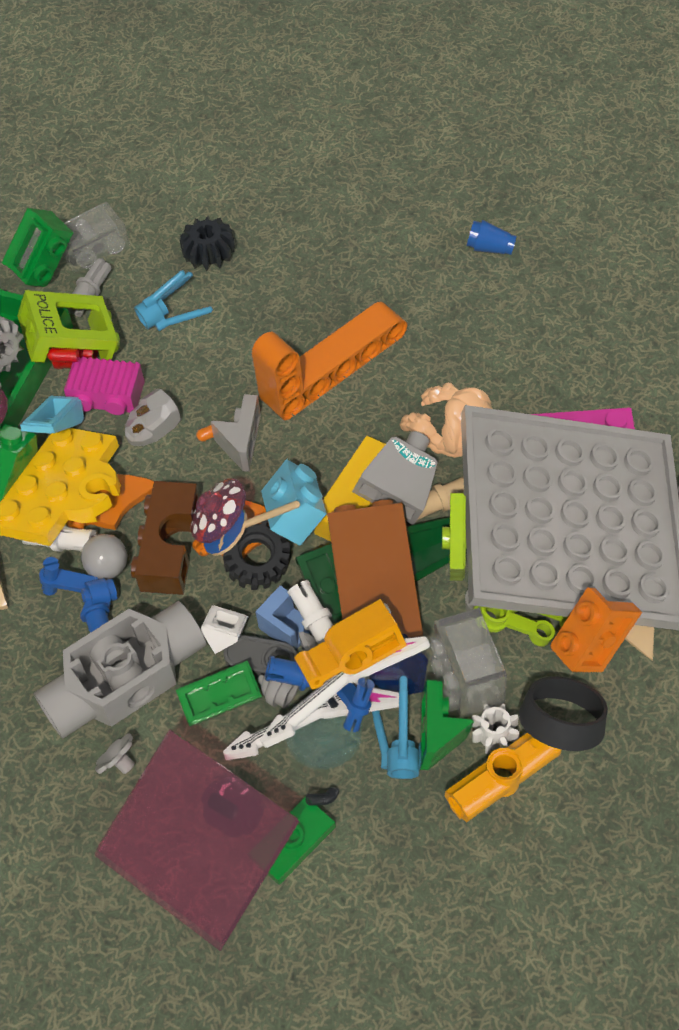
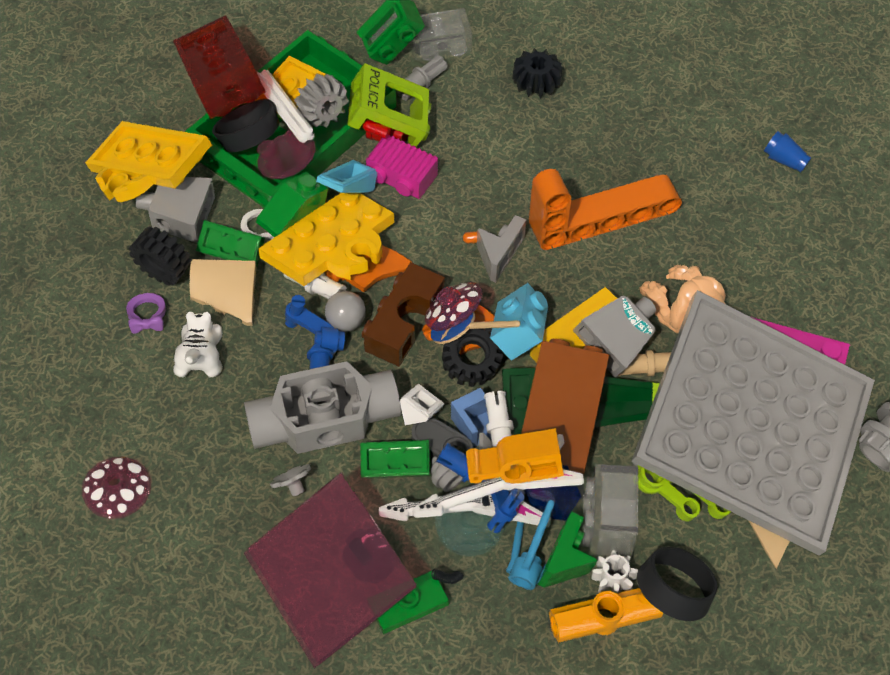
camera: 15 degrees right, 0 degrees up
(151, 419) = (430, 209): light grey rock -> none
(153, 309) = (468, 115): dark azure plant -> none
(455, 536) = (643, 400): lime plate -> none
(594, 632) = (731, 524): orange bracket -> none

